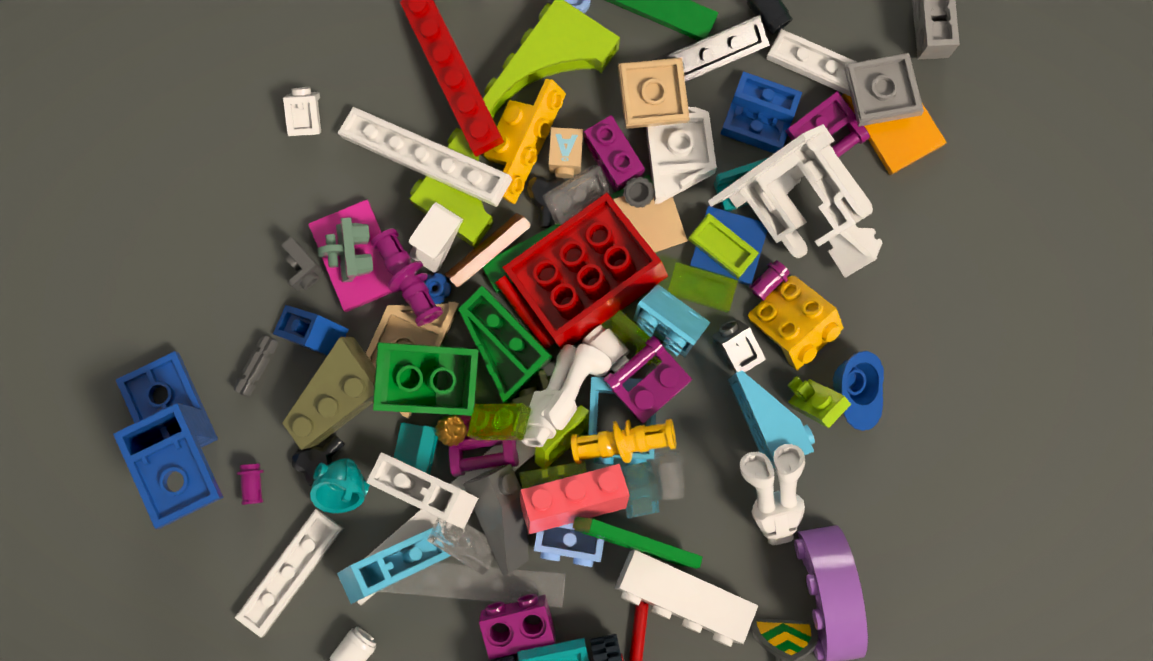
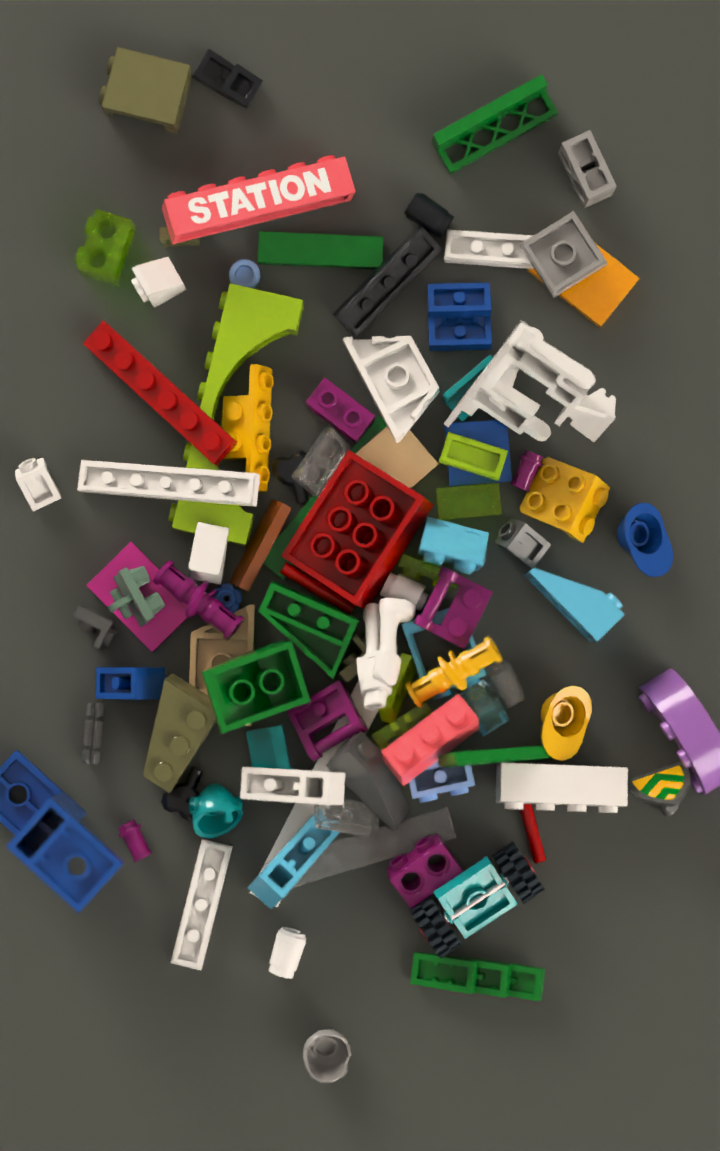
camera: 20 degrees left, 5 degrees up
(451, 430) = (295, 722): pearl gold piece -> none
(499, 421) = (336, 698): clear neon green plate -> none
(565, 152) = (295, 426): tan brick -> none
(638, 192) = (377, 439): dark grey piece -> none
(653, 93) = (354, 340): tan tile -> none
(713, 535) = (565, 721): none -> yellow piece
(780, 511) = (616, 677): white piece -> none
(817, 401) = (611, 566): lime plate -> none
(834, 115) = (522, 302): magenta plate -> none

